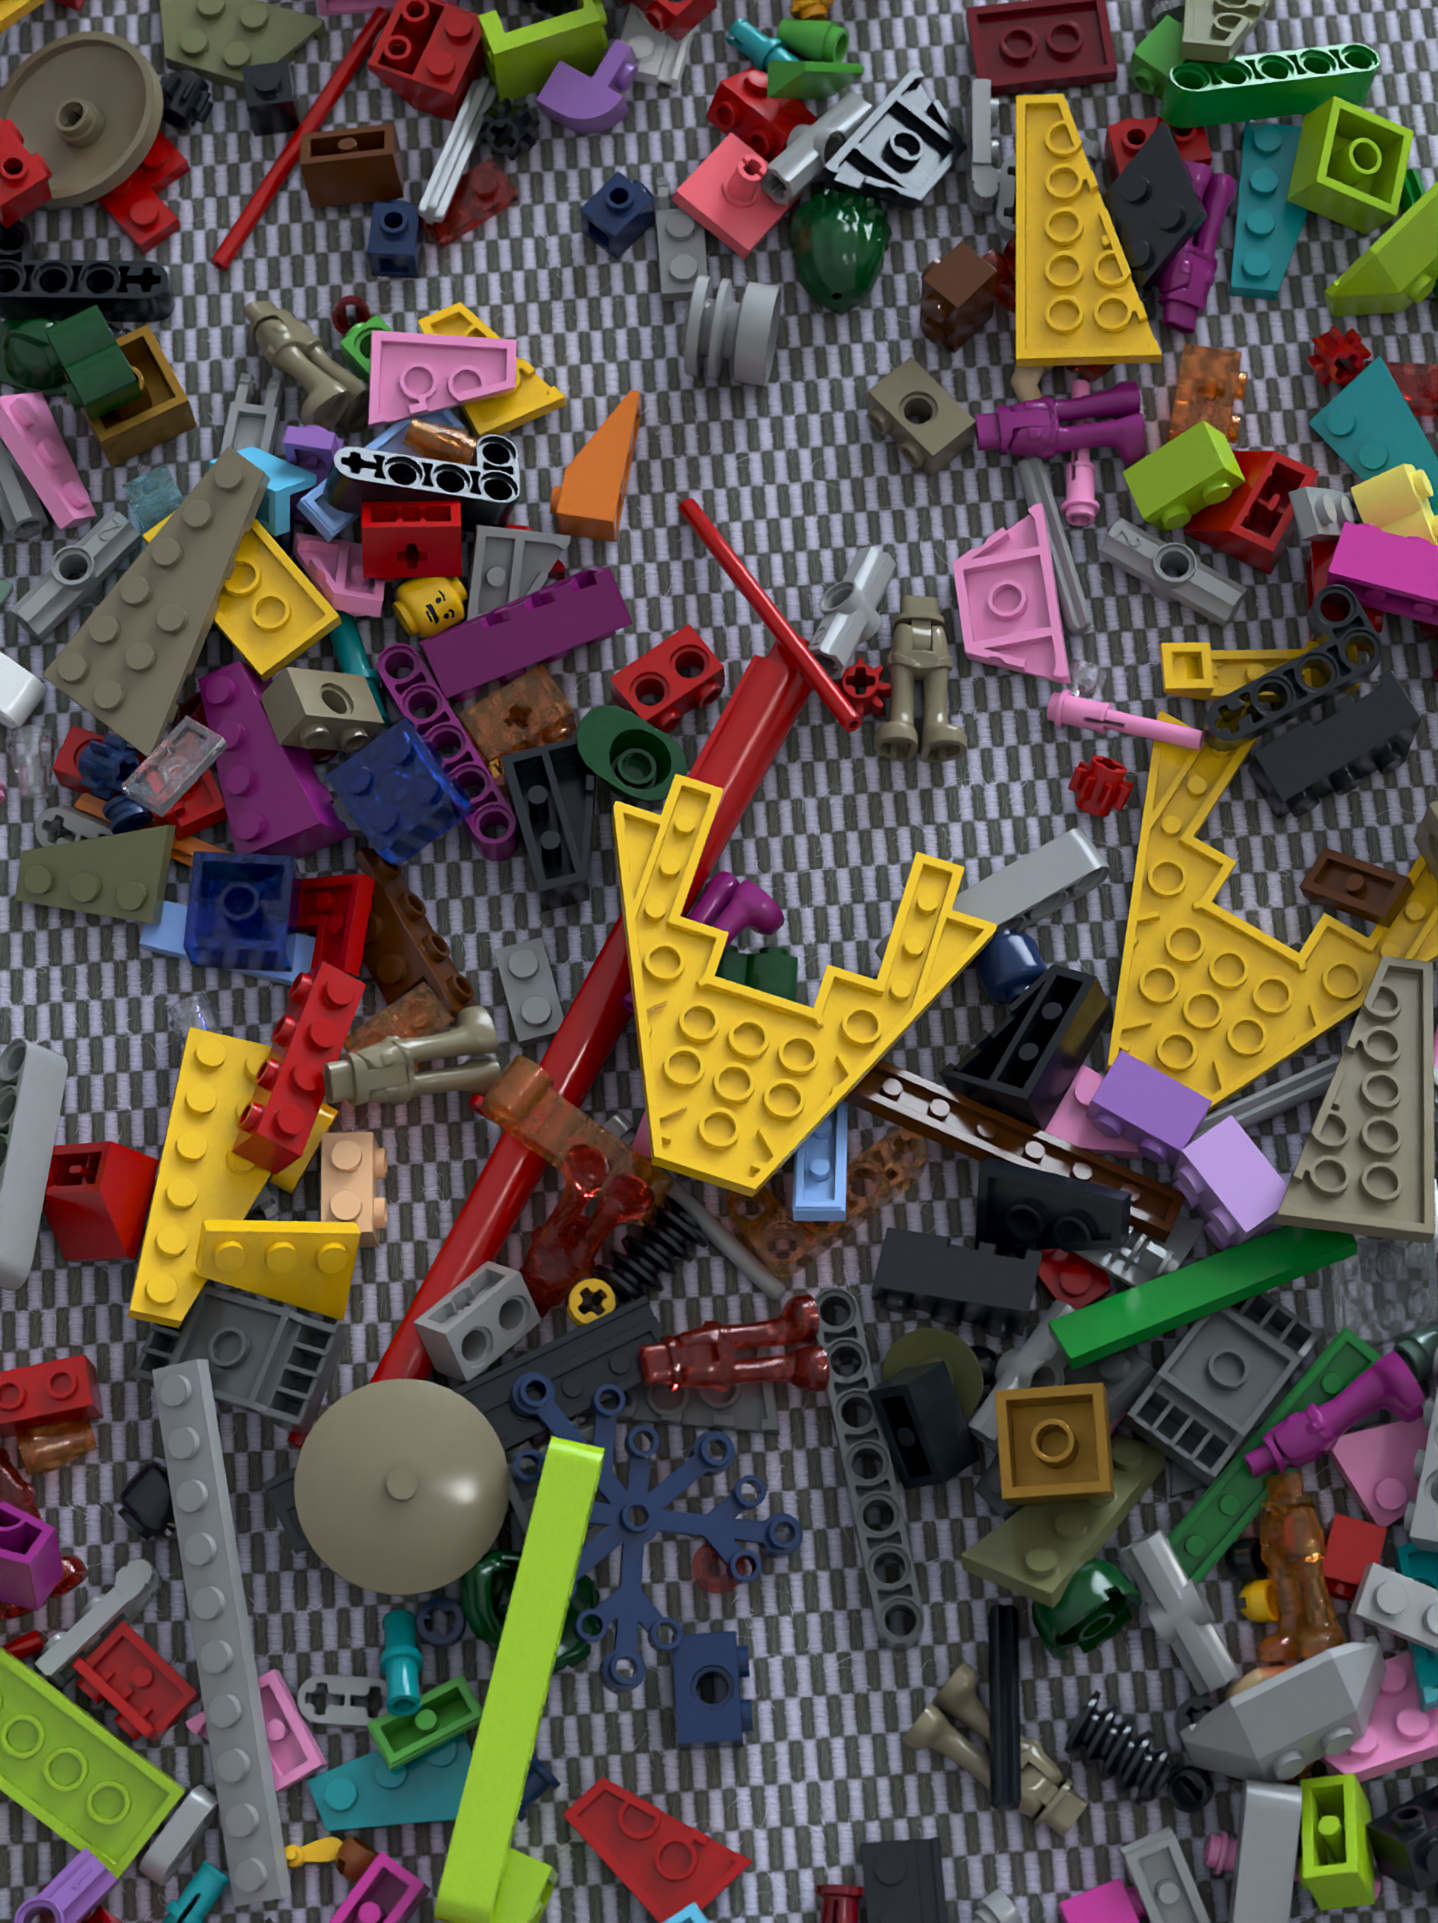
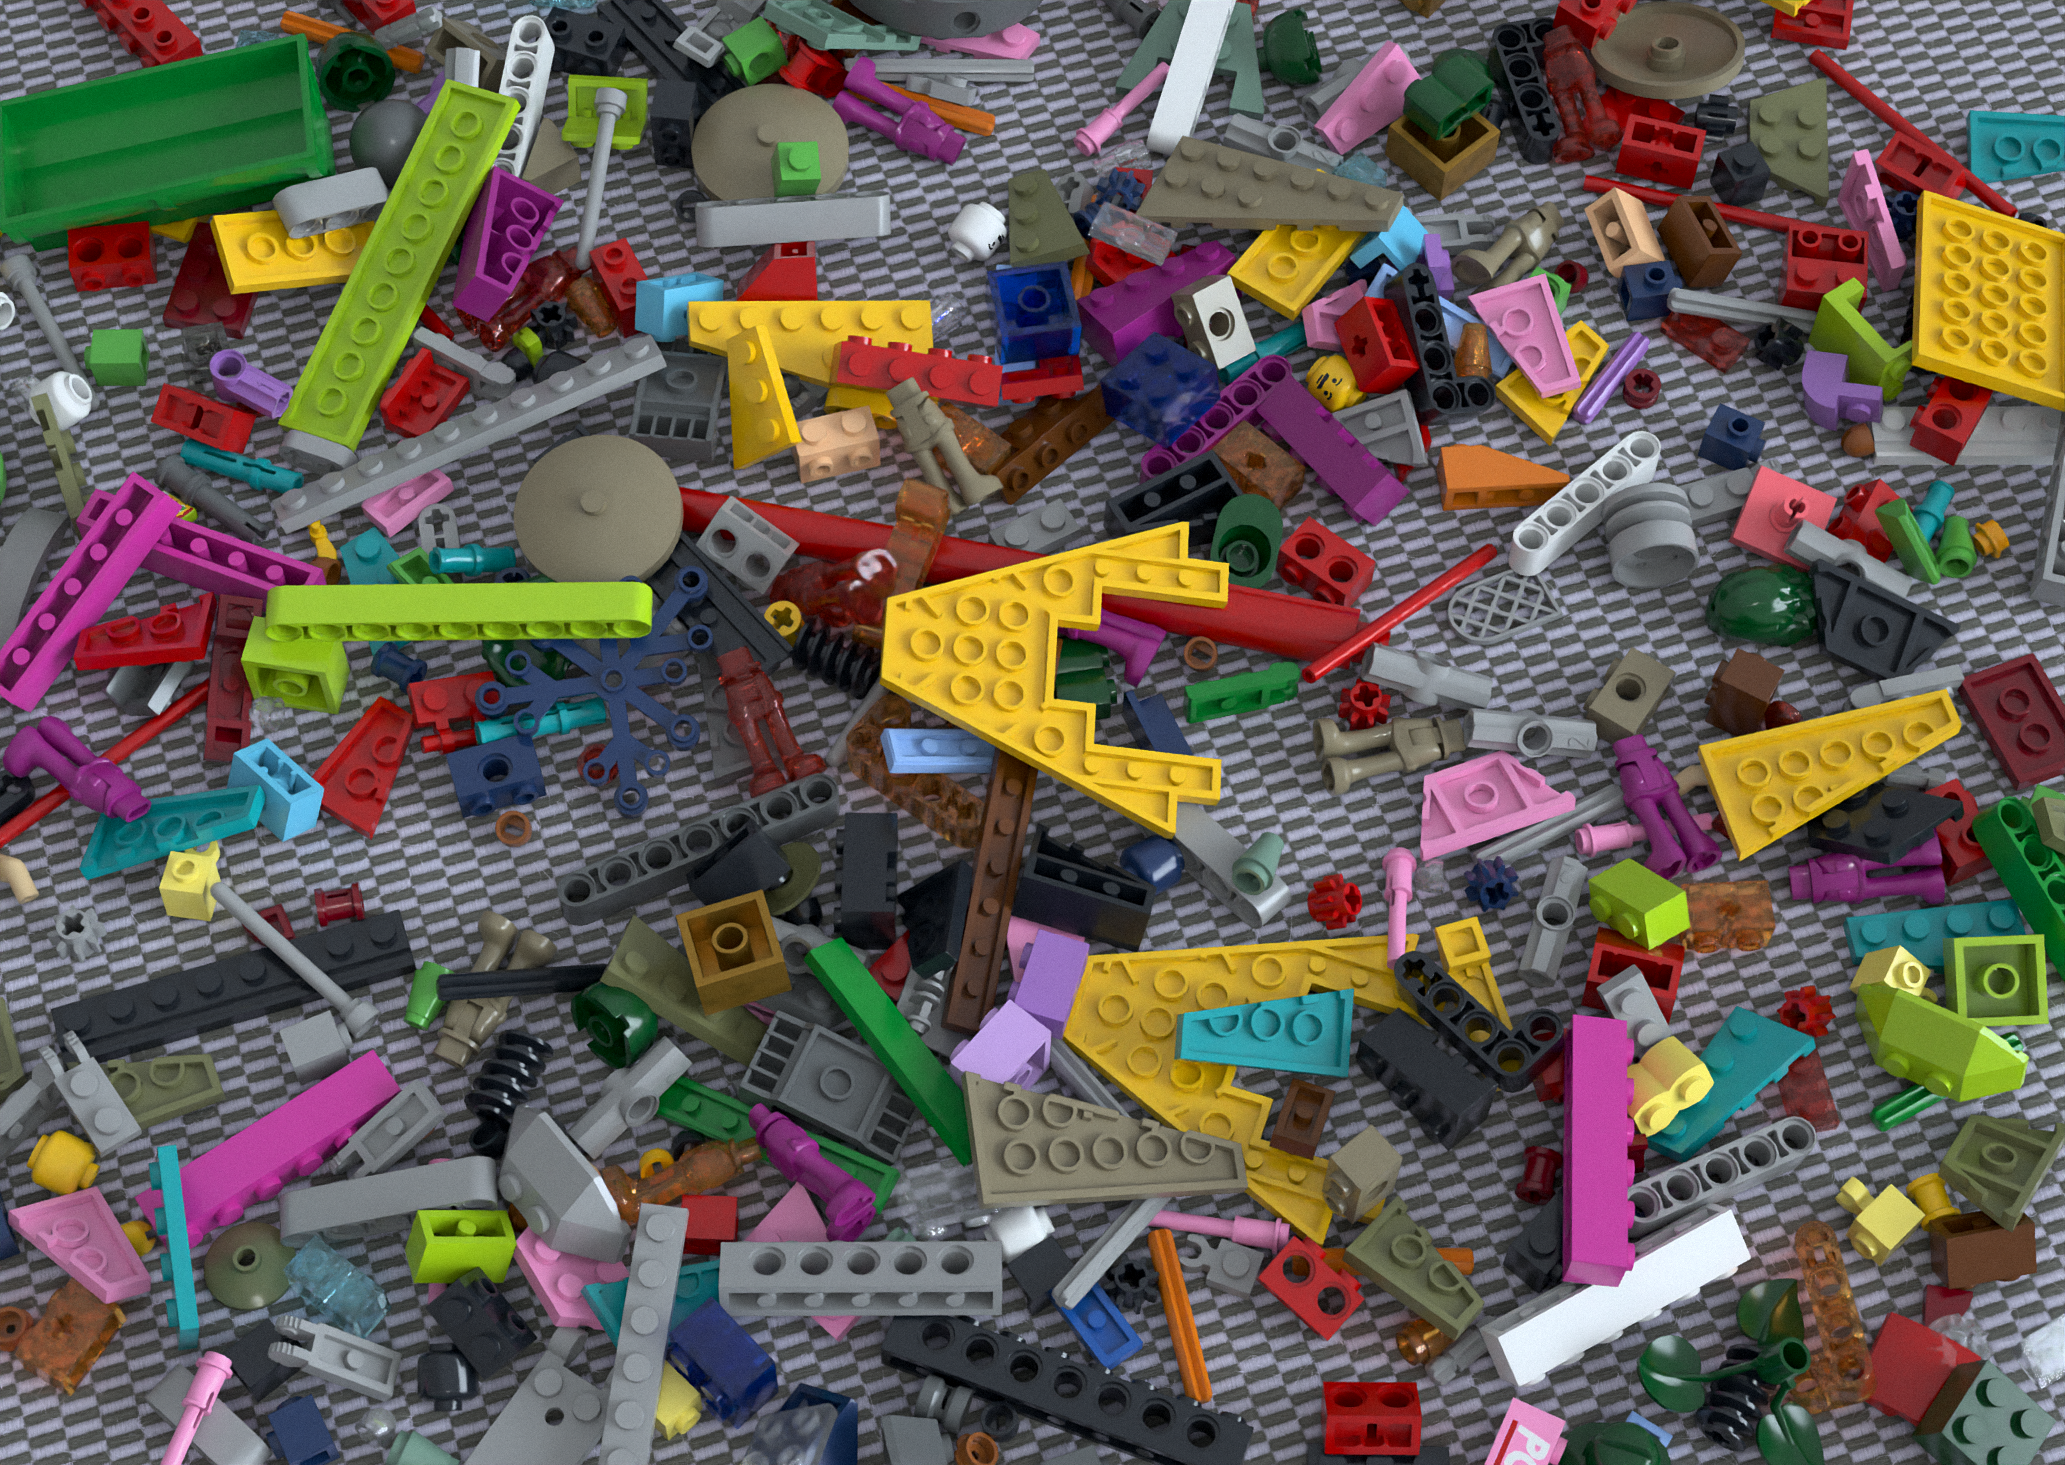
camera: 70 degrees right, 10 degrees down
(57, 1506) = (553, 324): none -> black gear
(81, 229) = (1567, 75): none -> clear red piece
(87, 953) = (977, 232): none -> white head
(88, 1536) = (529, 344): none -> lime tile
(100, 1334) = (664, 301): none -> medium azure brick
(112, 1556) = (519, 363): none -> black hinge
(215, 168) = (1660, 151): none -> red brick
(320, 240) = (1623, 231): none -> light nougat brick
(494, 312) = (1610, 378): none -> medium lavender axle
(527, 278) = (1641, 400): none -> dark red bush
(593, 1726) = (446, 702): none -> red plate
(652, 91) = (1858, 441): none -> dark orange hinge
(657, 1683) = (559, 720): none -> teal pin
(667, 406) = (1579, 504): none -> white beam
(754, 466) = (1554, 613): none -> light grey window
(755, 854) = (1204, 646): none -> dark orange hinge
(794, 1691) = (518, 821): none -> dark orange hinge
(808, 813) = (1241, 693): none -> green hinge
(839, 921) = (1153, 725): none -> dark blue panel
(942, 528) = (1553, 737): none -> light grey piece
(984, 1828) = (423, 1000): none -> bright green cone
(1055, 847) = (1258, 864): none -> sand green cone
(1116, 620) = (1491, 884): none -> dark blue gear
(1258, 889) = (1277, 1035): none -> teal wing
(1319, 262) = (1895, 969): none -> light yellow brick

